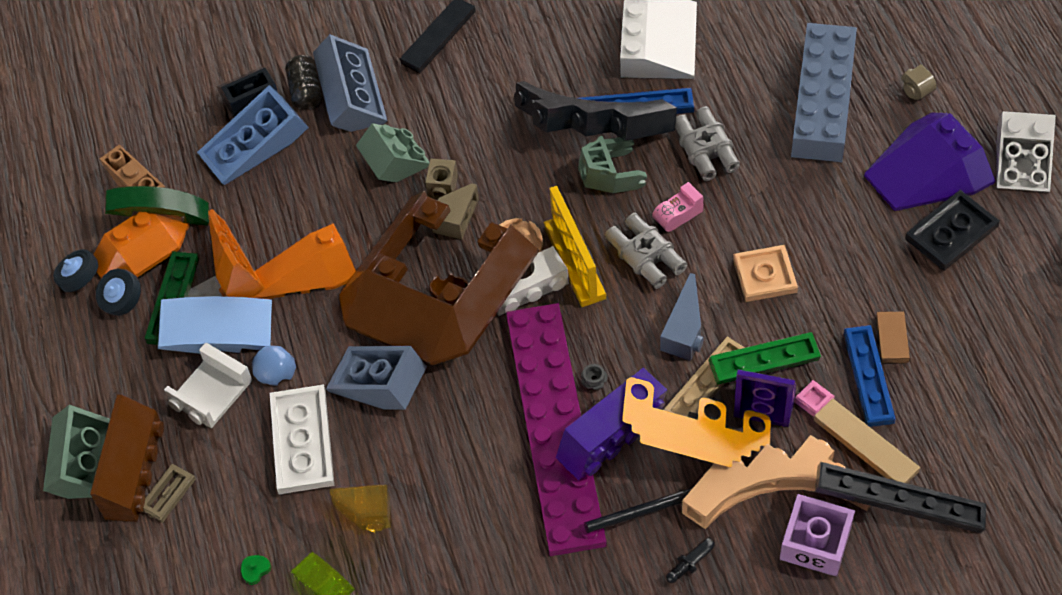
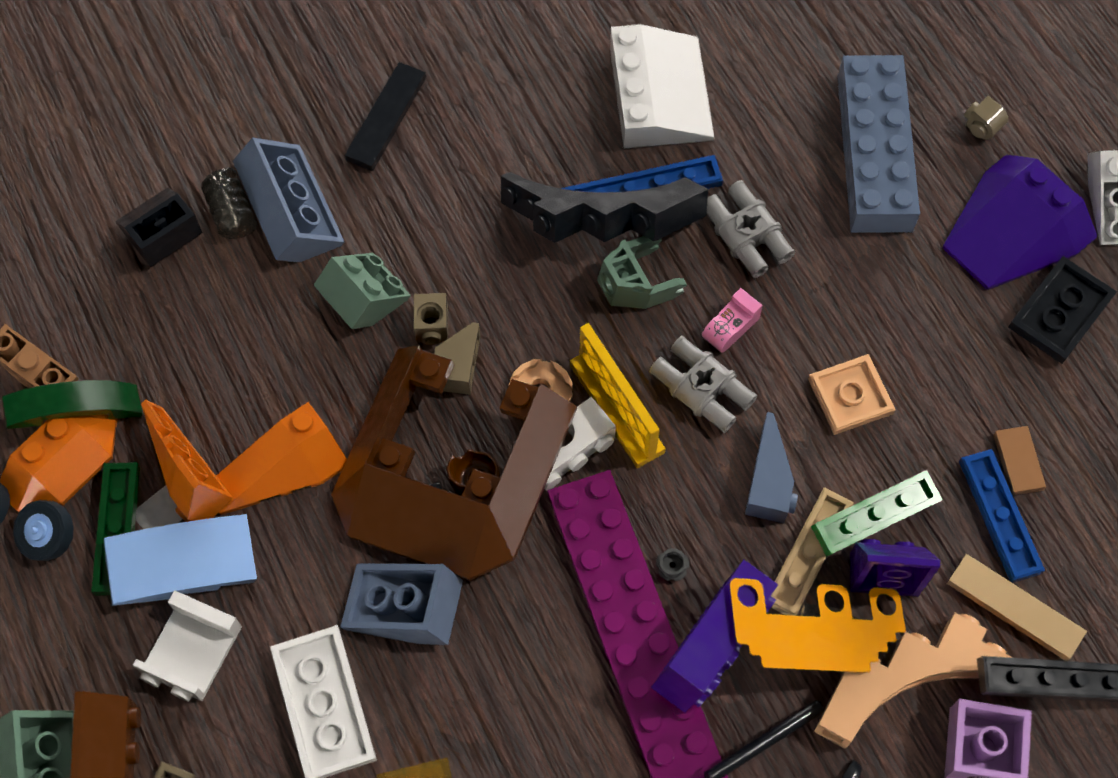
camera: 15 degrees left, 10 degrees up
(252, 136) = (176, 287): medium blue slope -> none
(273, 365) = (266, 604): medium blue hair -> none
(813, 398) = (948, 553): bright pink tile -> none

